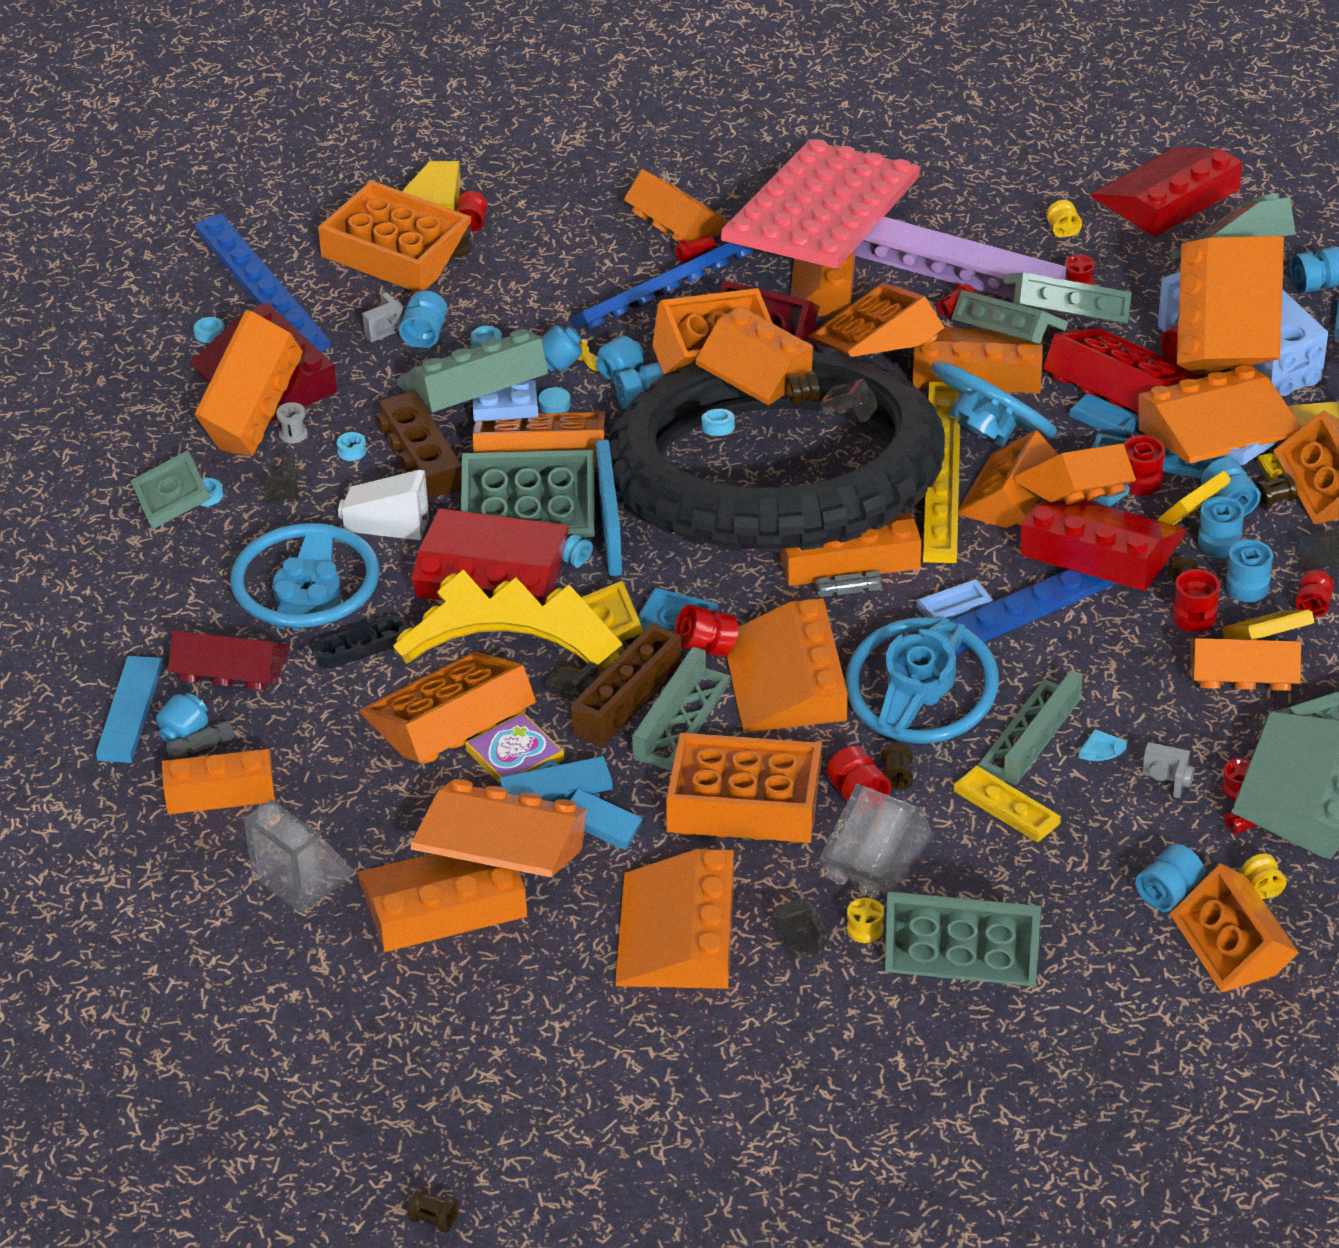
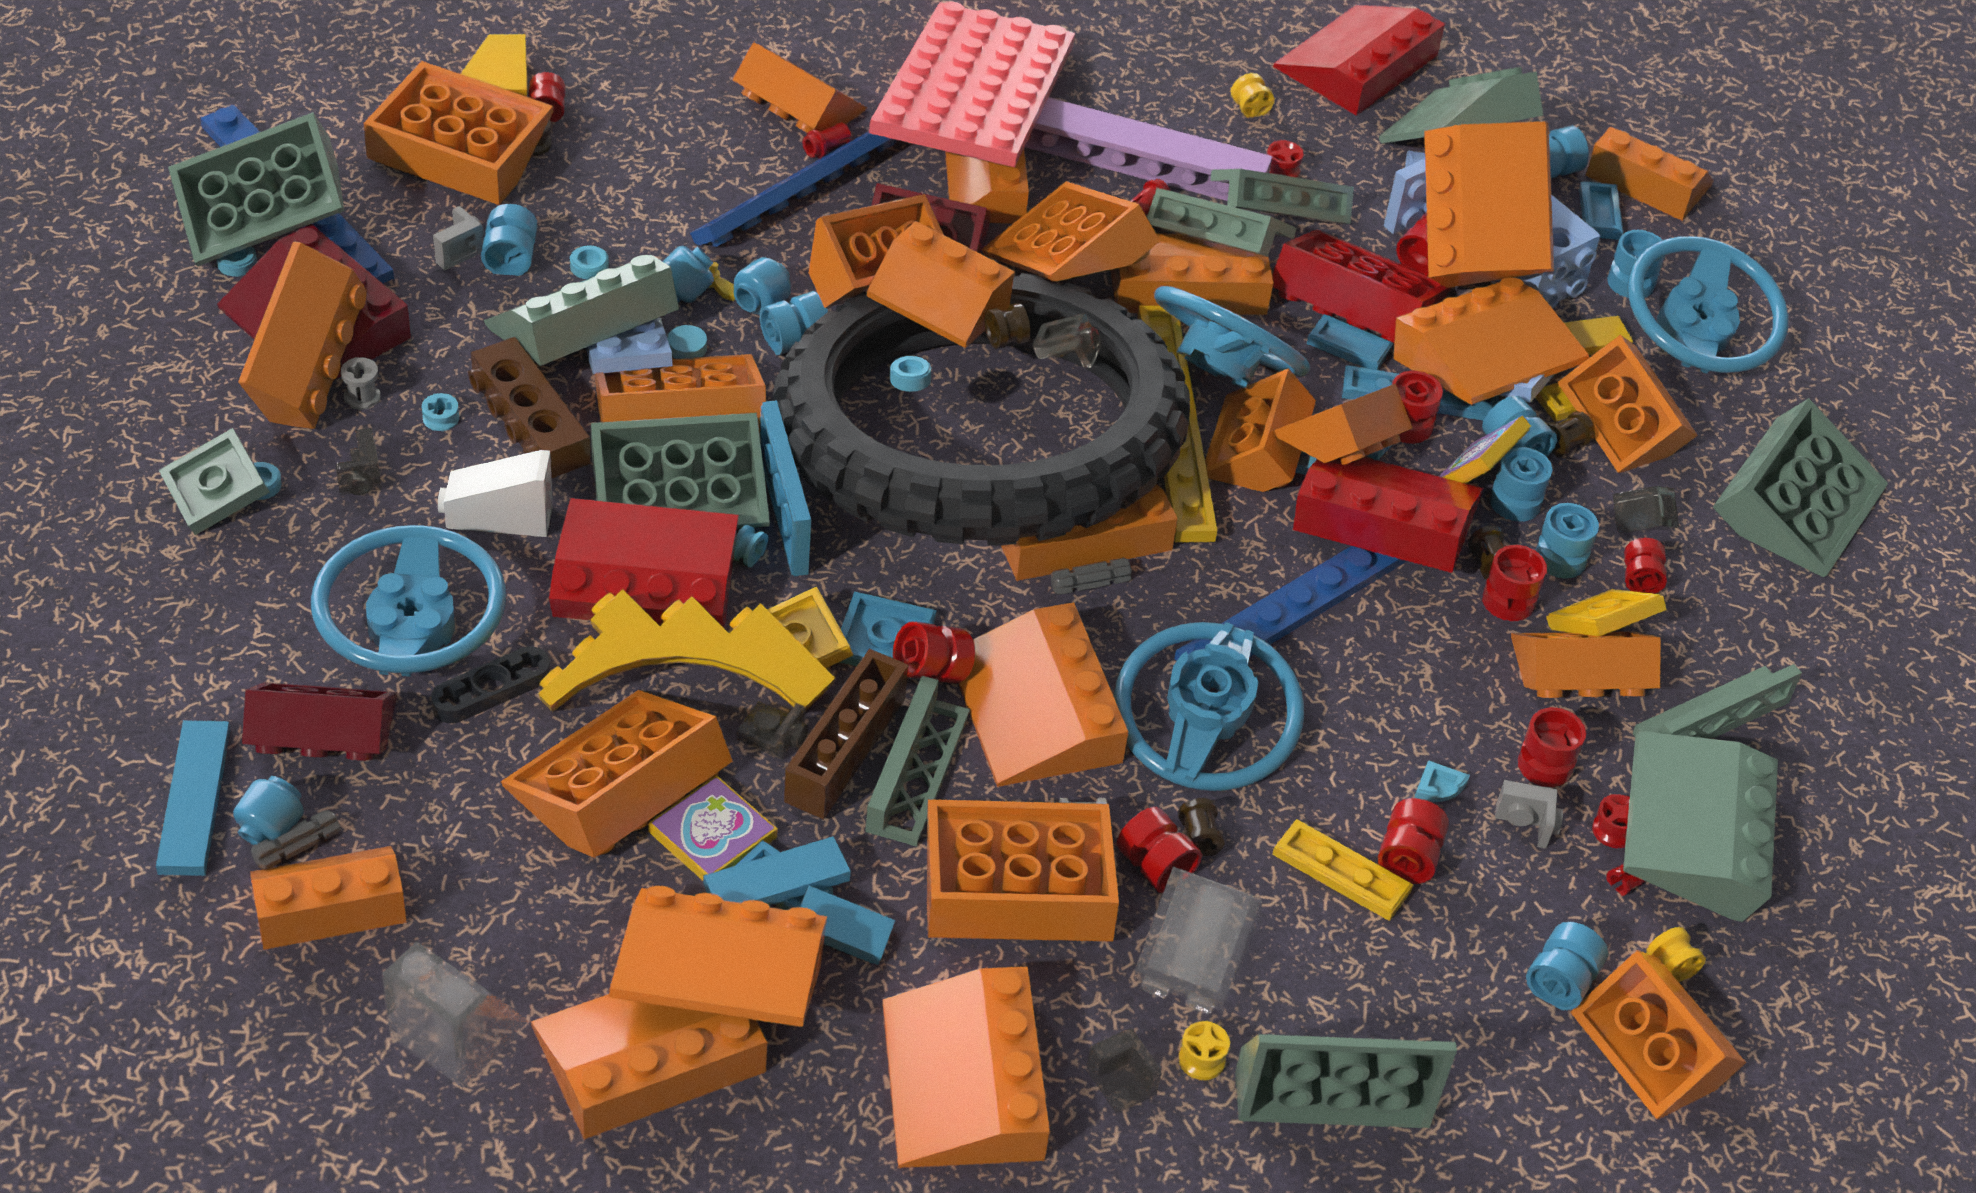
camera: 15 degrees left, 5 degrees up
(229, 274) = (257, 188): none -> sand green slope
(954, 601) = (1223, 595): light blue tile -> none
(1038, 733) = (1365, 765): sand green fence -> none
(1066, 783) = (1414, 840): none -> red wheel
(1196, 721) = (1551, 747): none -> red wheel

